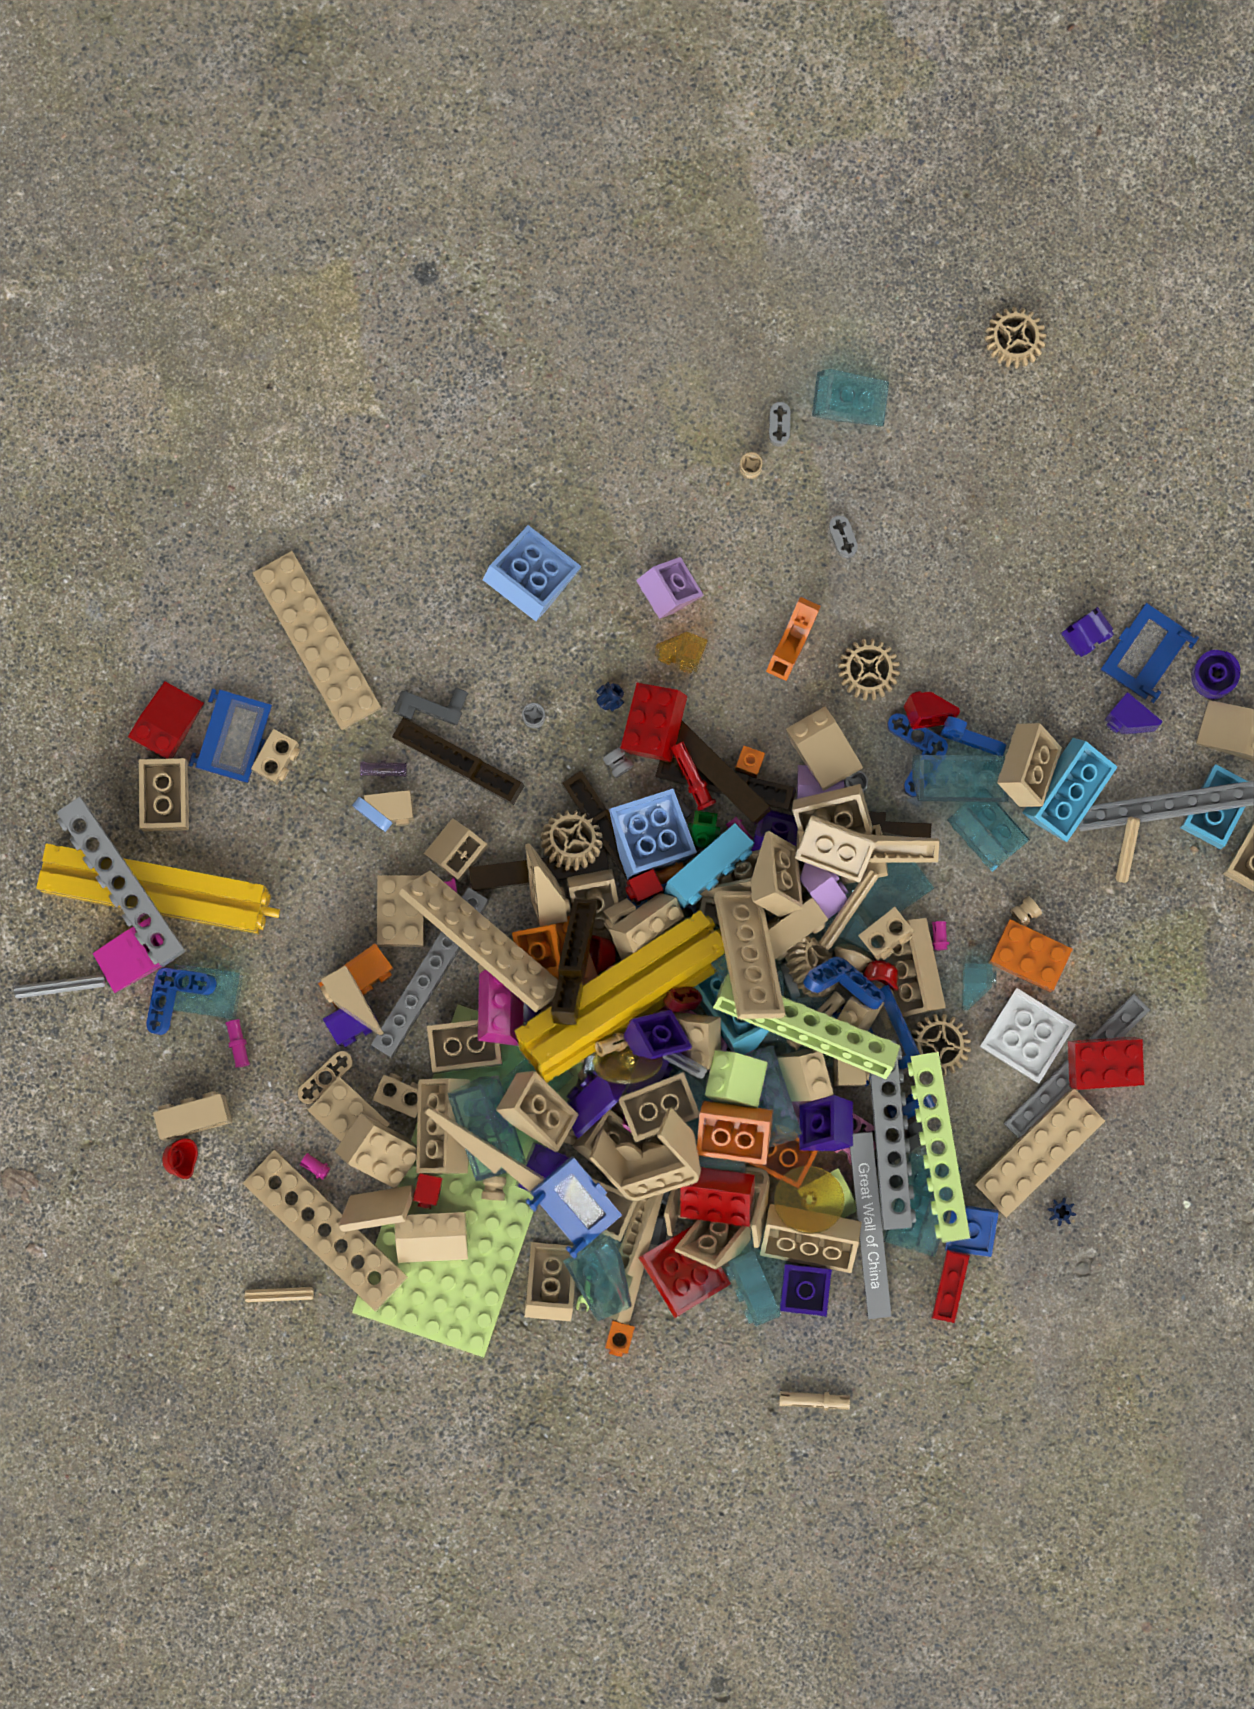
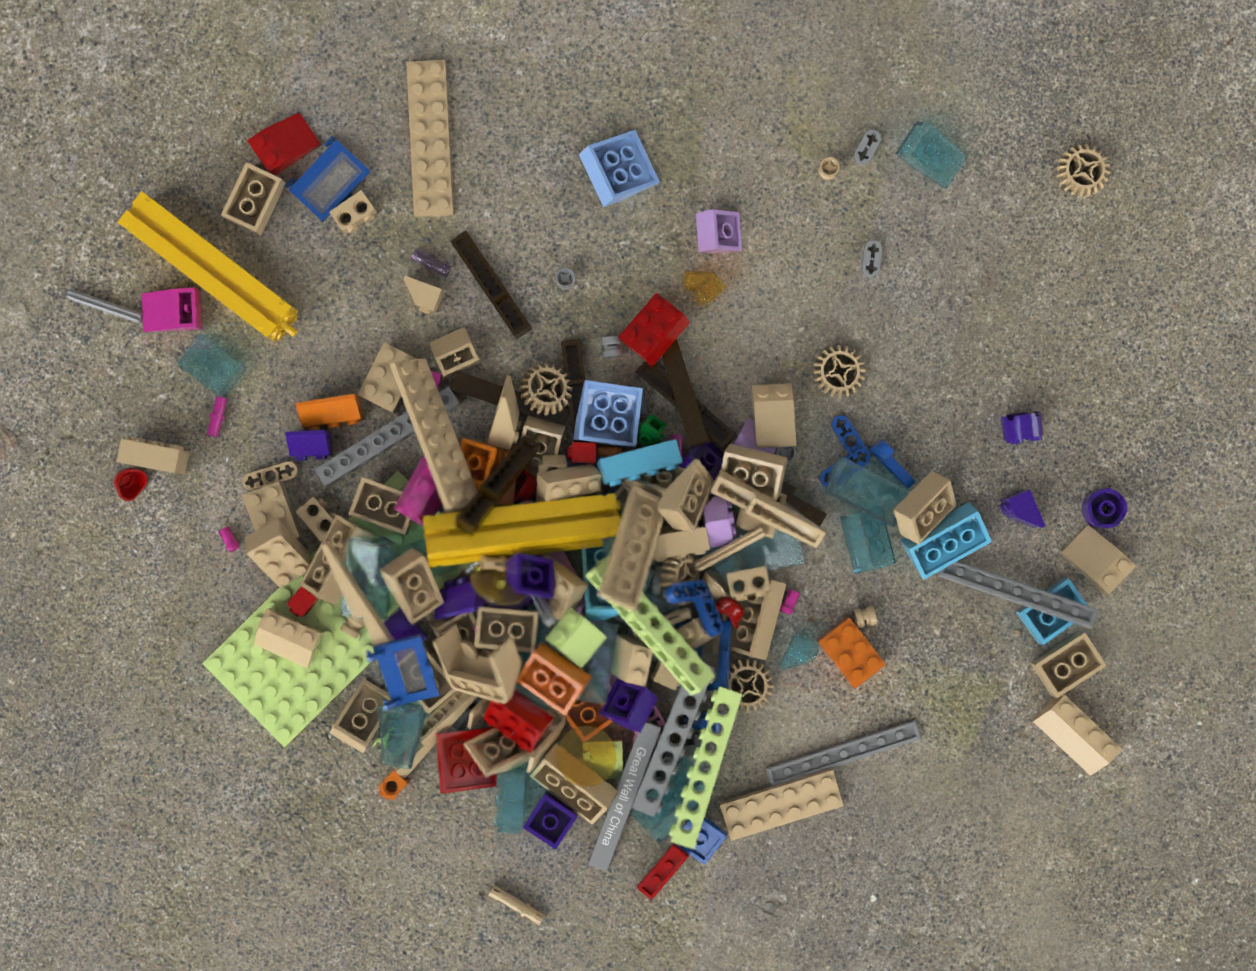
camera: 30 degrees right, 5 degrees up
(77, 811) = (196, 318): light grey brick -> none
(169, 990) = (185, 351): blue beam -> none
(279, 1294) = (154, 622): tan axle -> none
(309, 1233) = (199, 589): tan plate -> none
(345, 993) = (310, 423): tan slope -> none
(372, 814) = (404, 293): light blue beam -> none
(377, 1208) = (256, 596): tan tile -> none
(408, 703) = (503, 246): dark grey beam -> none
(610, 696) = (631, 293): dark blue gear -> none
(683, 999) = (567, 555): dark red beam -> none
(696, 784) = (662, 391): red pin -> none
(750, 761) = (712, 396): orange brick -> none
(793, 639) = (793, 319): orange arch -> none
(835, 849) = (742, 499): tan tile -> none
(928, 710) = (869, 425): red slope -> none
(1027, 1035) = (817, 711): white plate -> none
(1066, 1208) = (775, 852): dark blue gear -> none
(1106, 1063) = (866, 763): red brick -> none
(1127, 849) = (968, 607): tan axle -> none
(1146, 652) = (1059, 464): blue piece -> none

